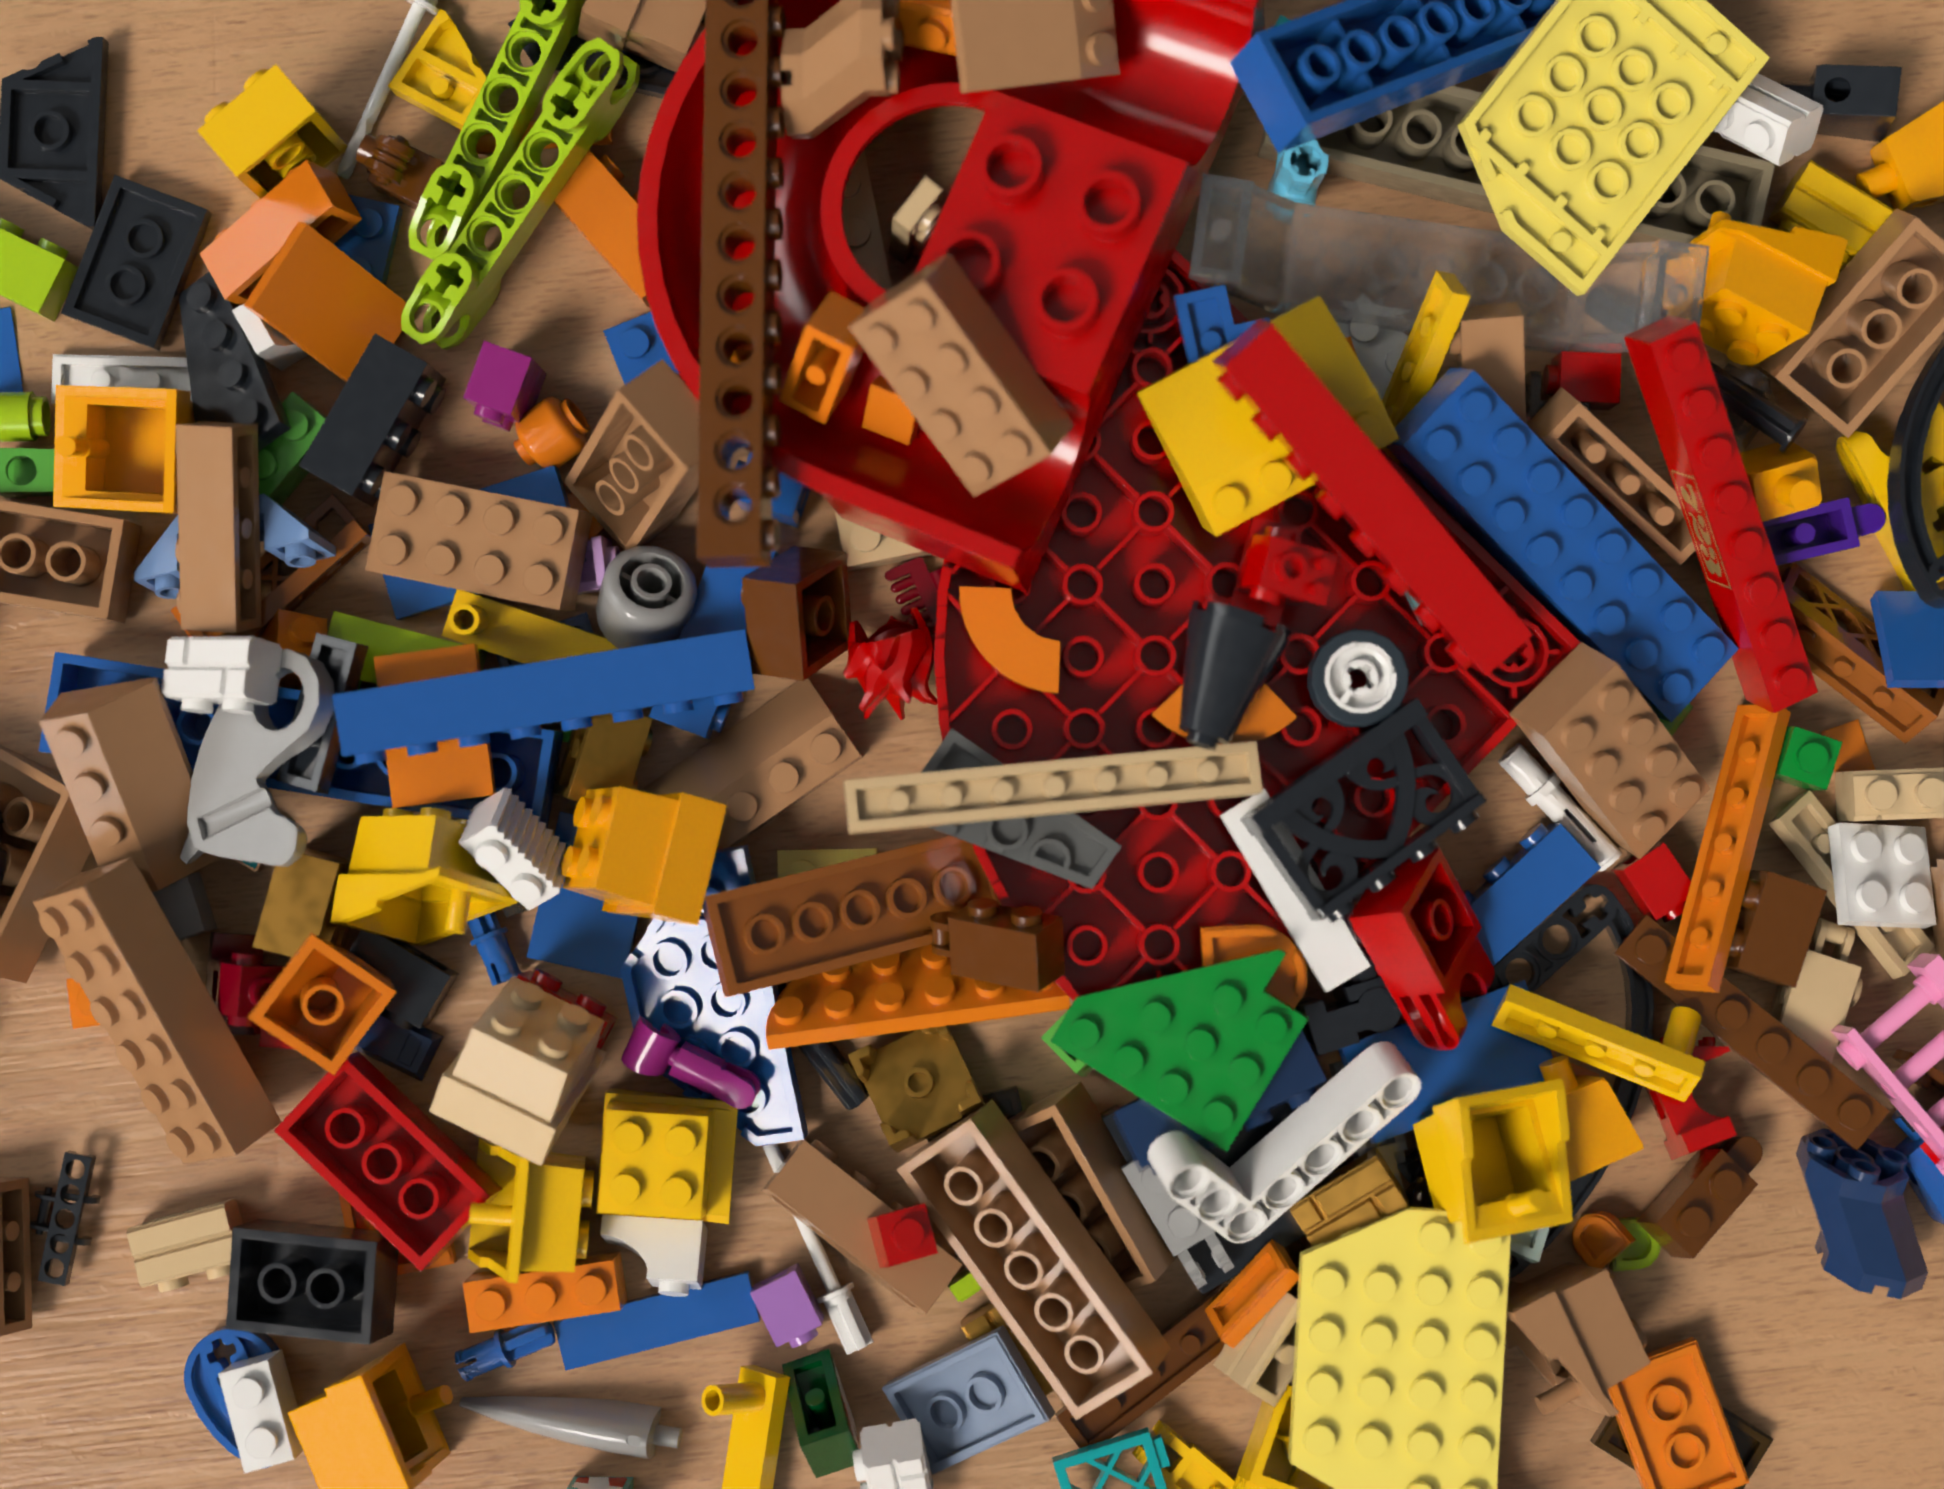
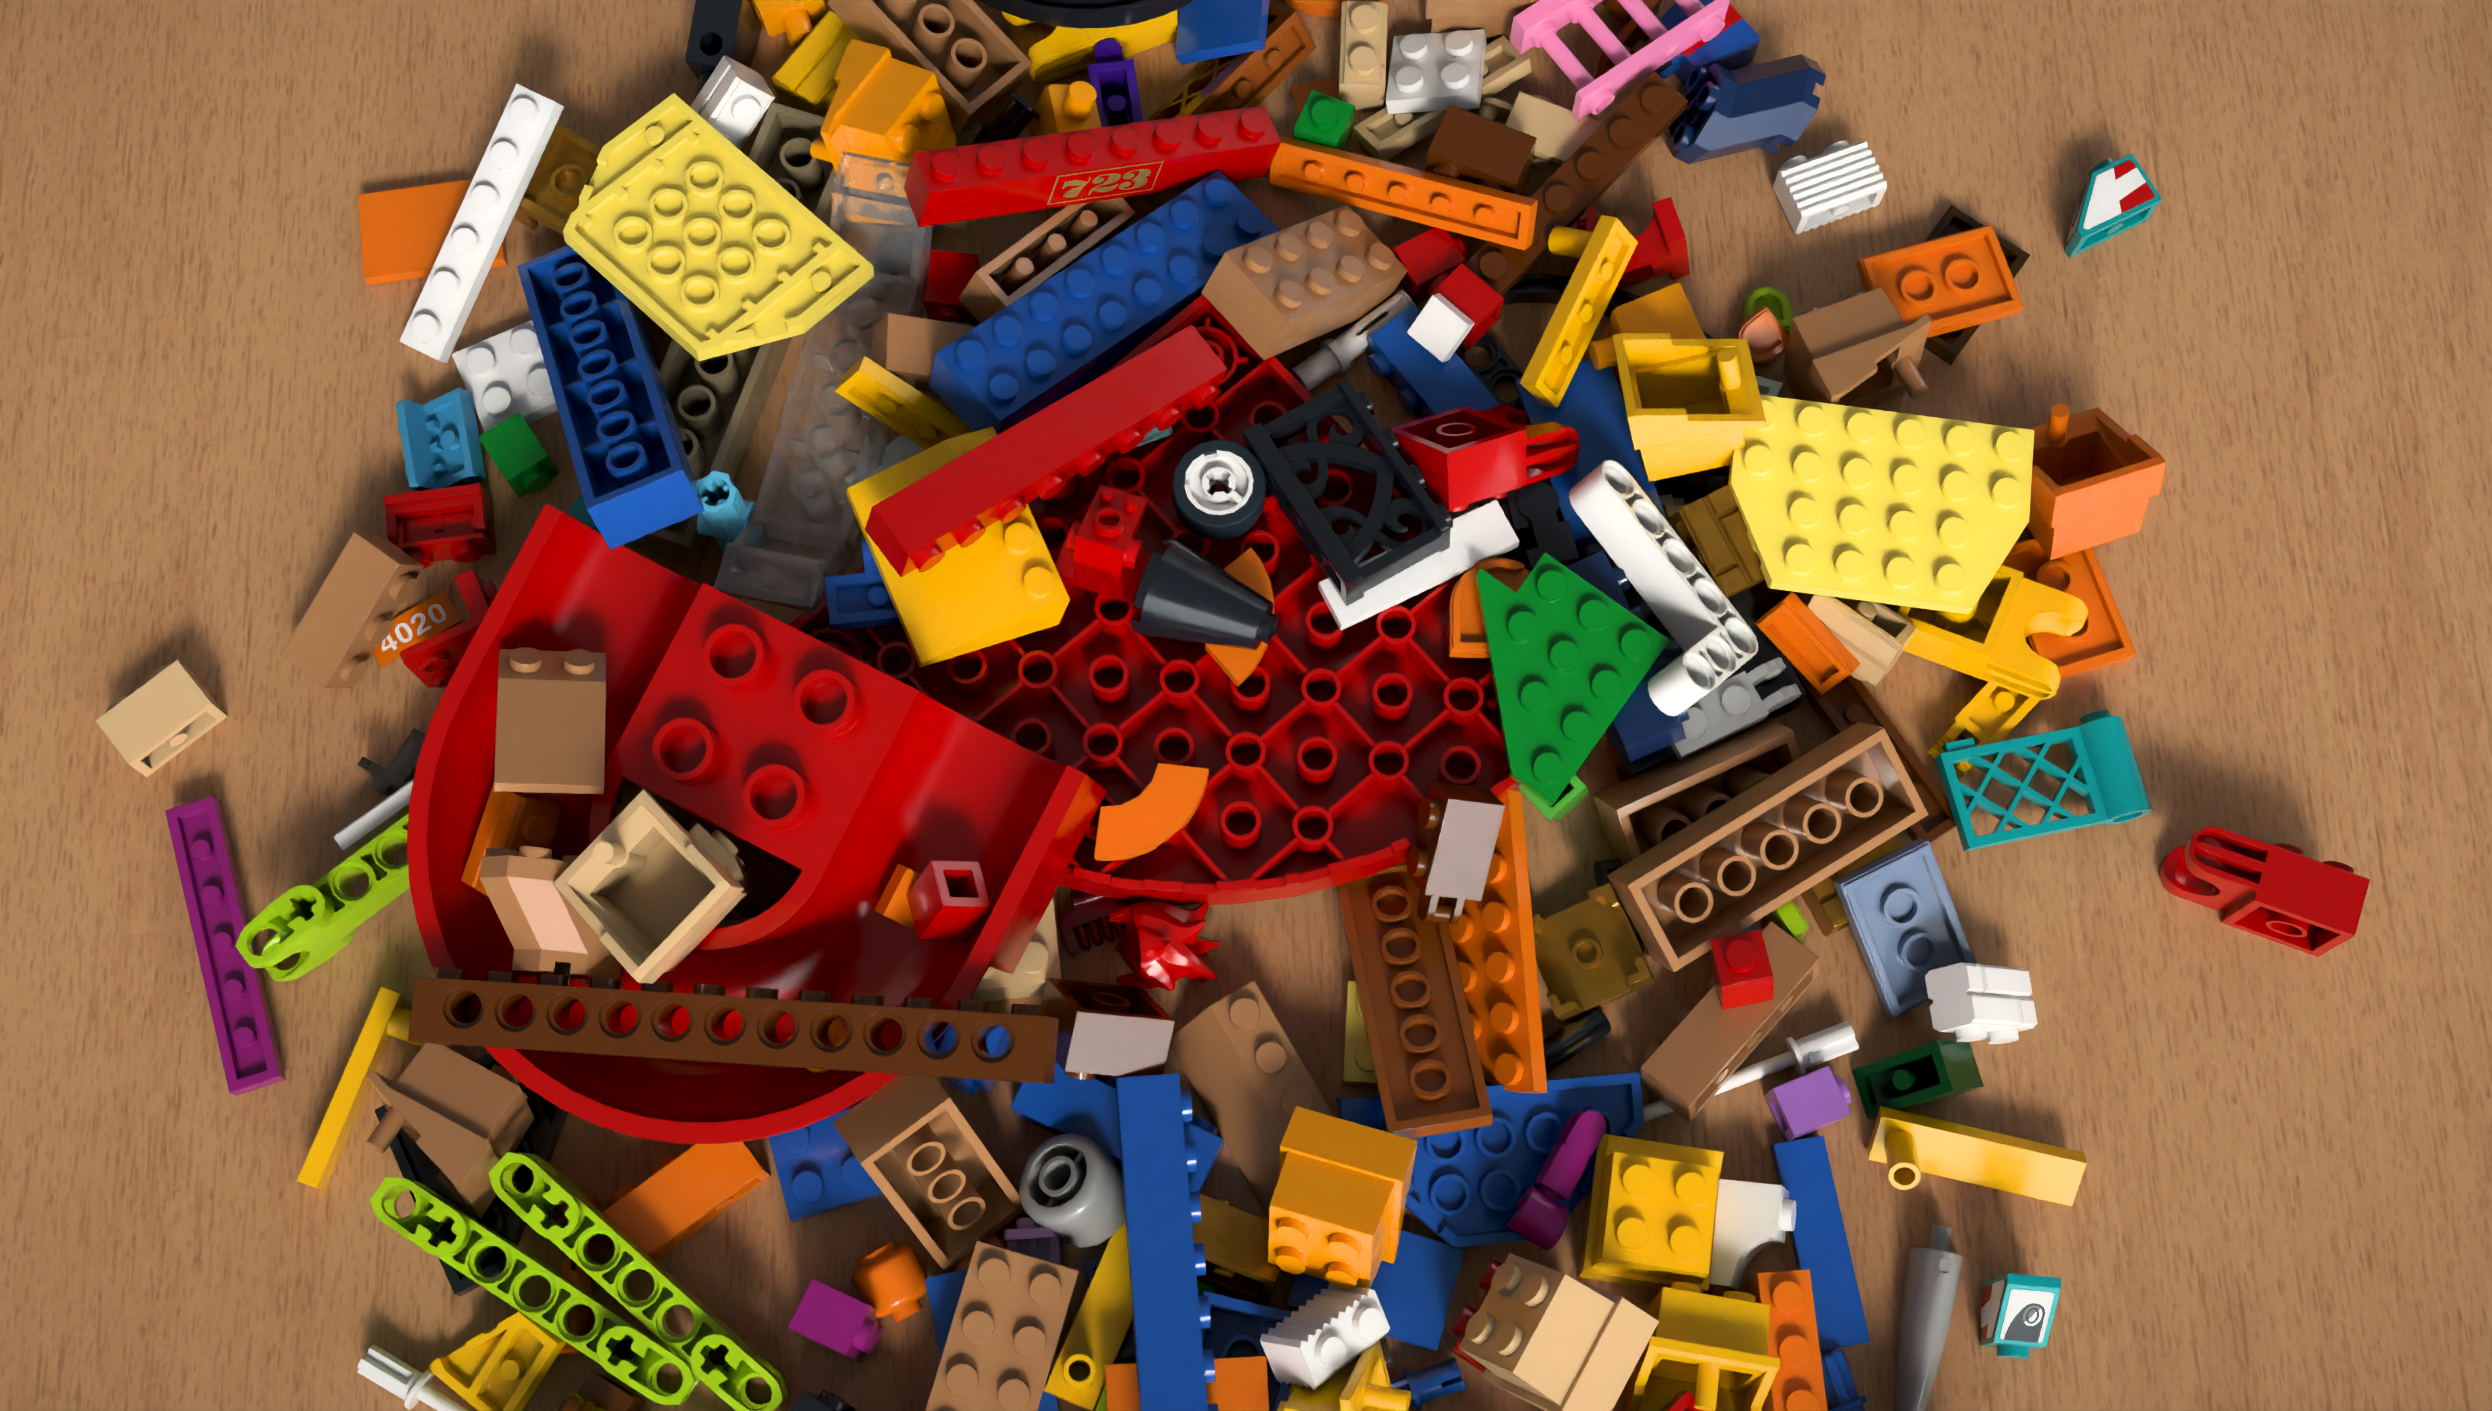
camera: 80 degrees left, 15 degrees down
(824, 360) = (851, 950): orange brick -> none
(858, 151) = (648, 889): none -> tan piece
(886, 446) = (948, 900): none -> red brick
(961, 375) = (886, 812): medium nougat brick -> none
(1051, 787) = (1303, 780): tan plate -> none
(1051, 843) = (1320, 835): dark grey wing -> none
(1570, 897) = (1440, 327): none -> white tile
(1604, 920) = (1472, 298): none -> red brick
(1702, 1196) = (1728, 244): reddish brown brick -> none
(1783, 1306) = (1829, 185): none -> white brick

